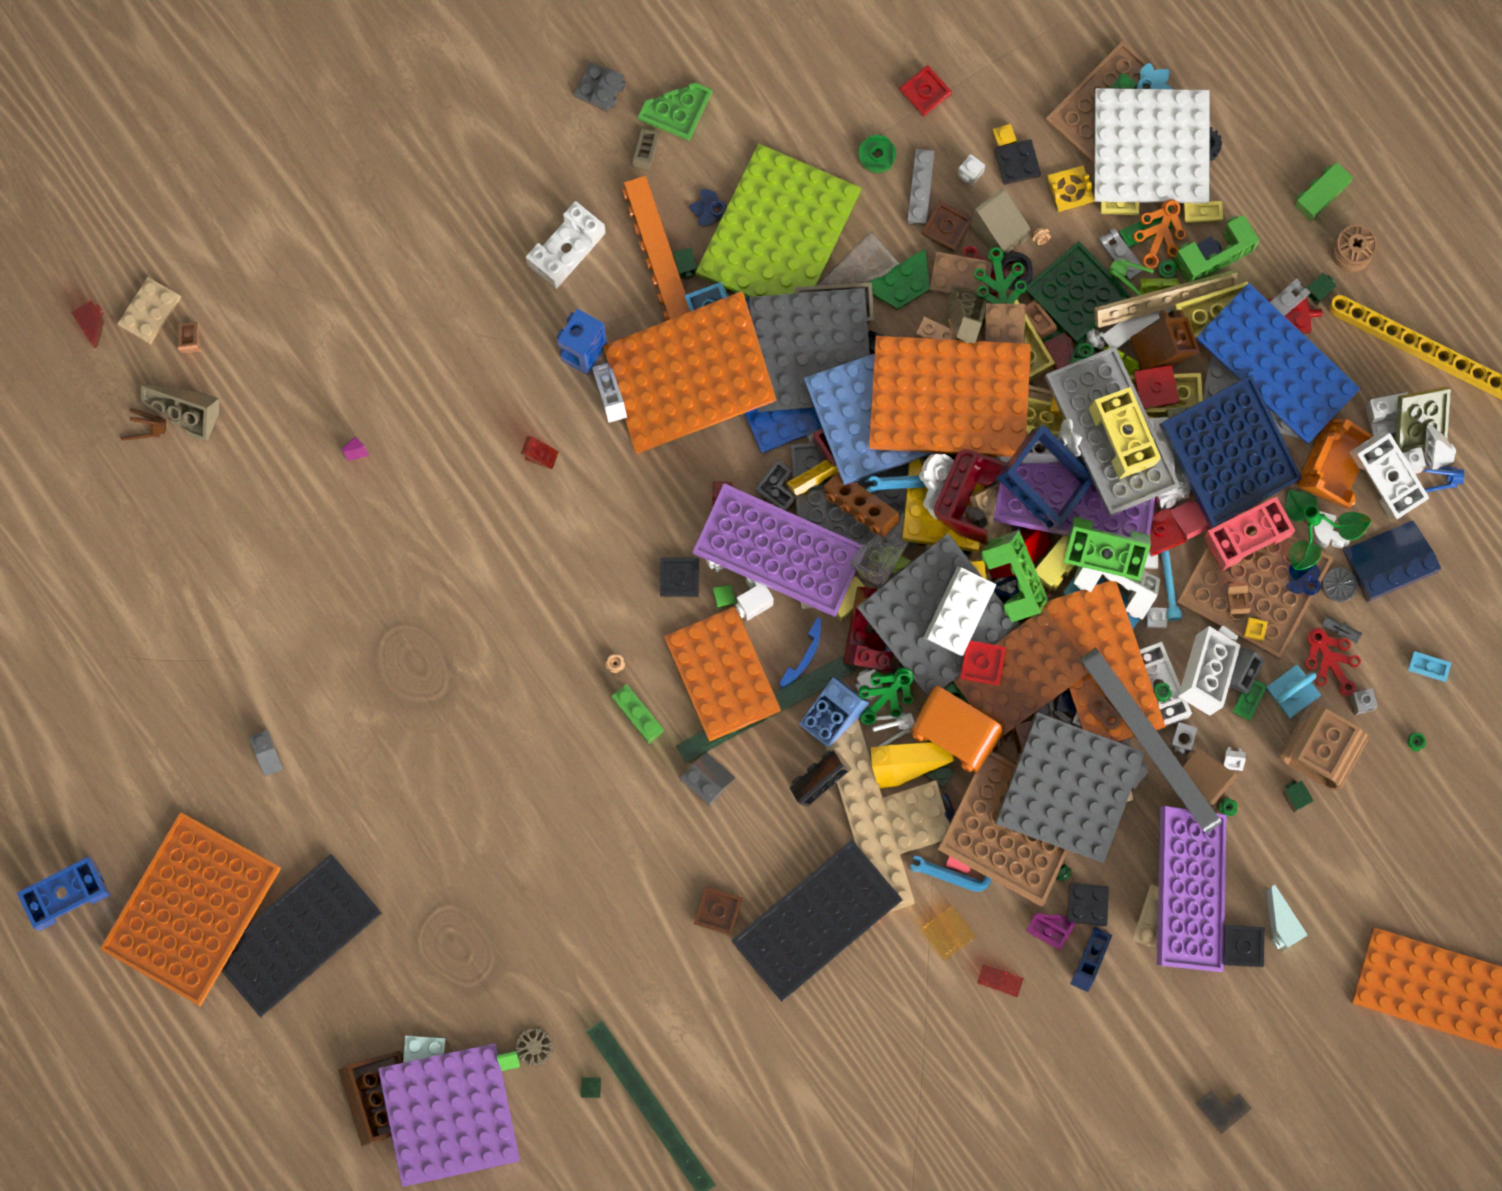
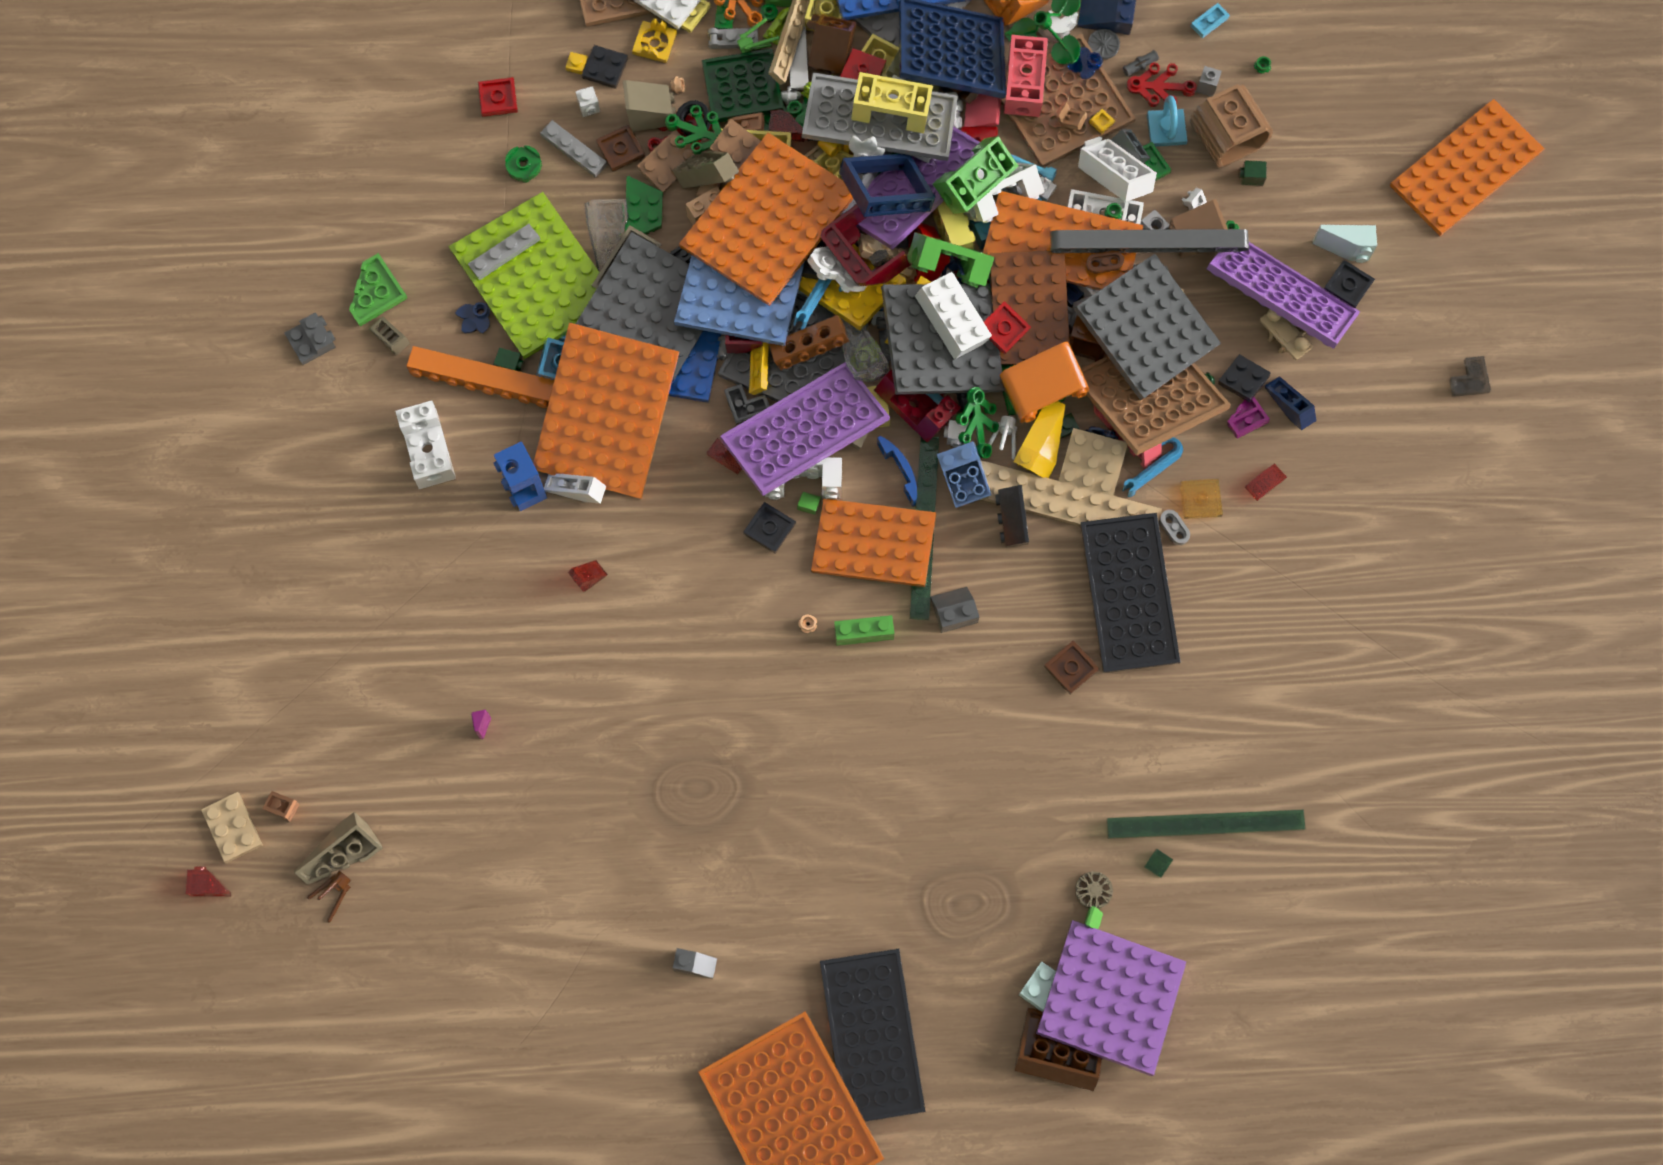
camera: 60 degrees left, 5 degrees down
(780, 193) = (504, 251): none -> light grey plate
(904, 925) = (1174, 528): none -> light grey plate

